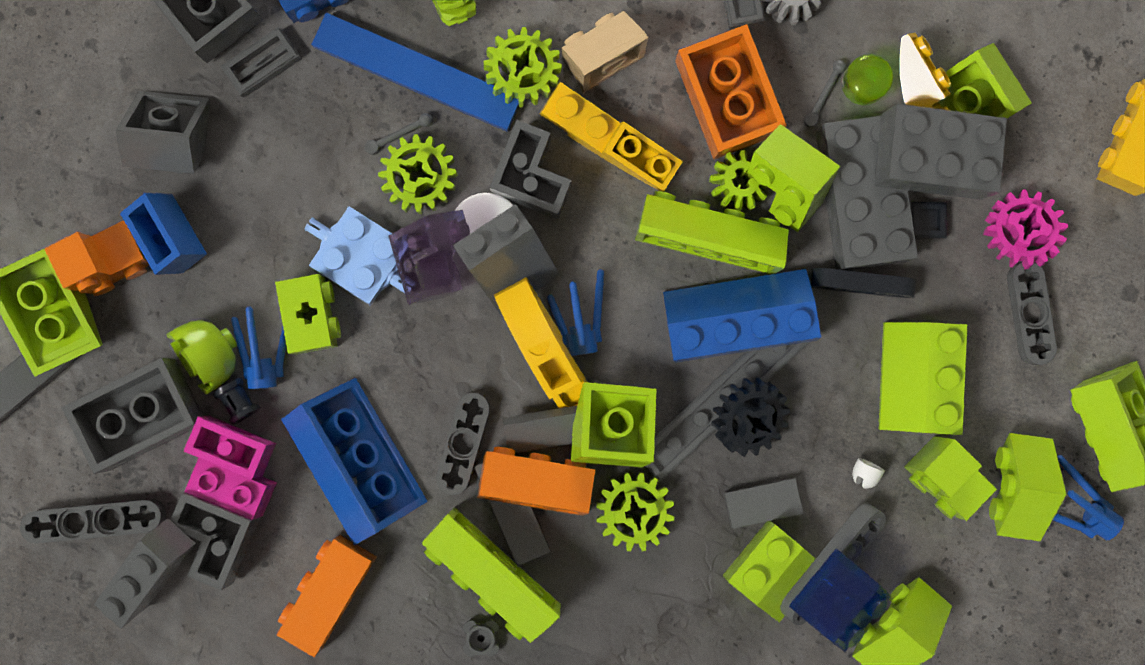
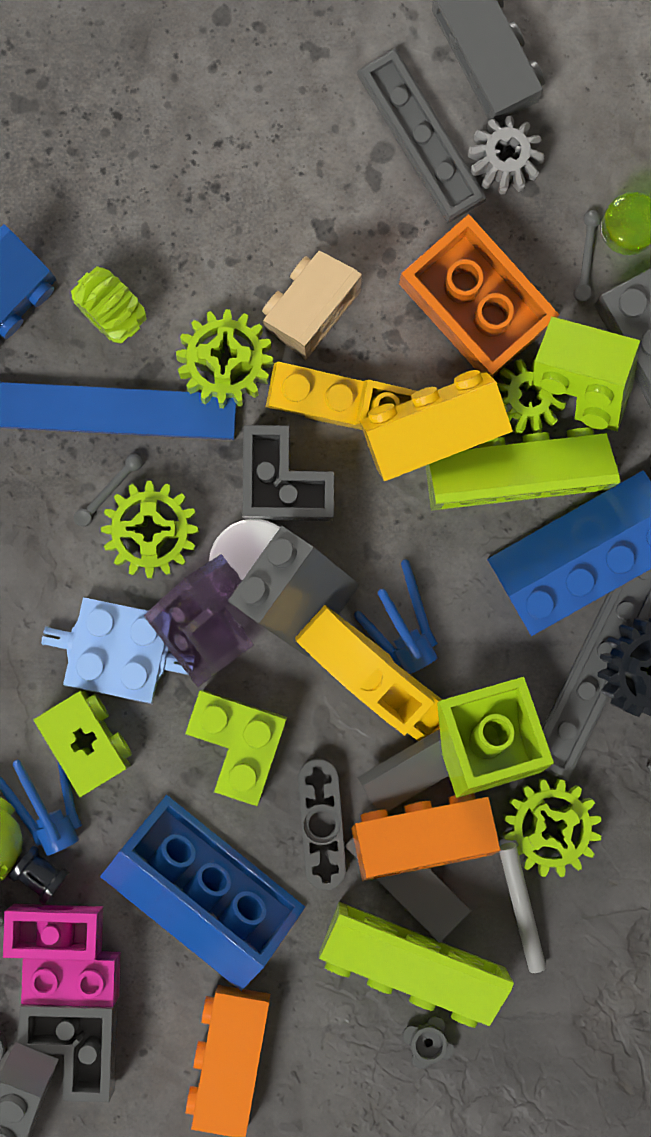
camera: 20 degrees left, 0 degrees up
(433, 358) = (250, 738): none -> lime brick
(589, 564) = (522, 907): none -> light grey bar
(661, 172) = (435, 424): none -> yellow brick

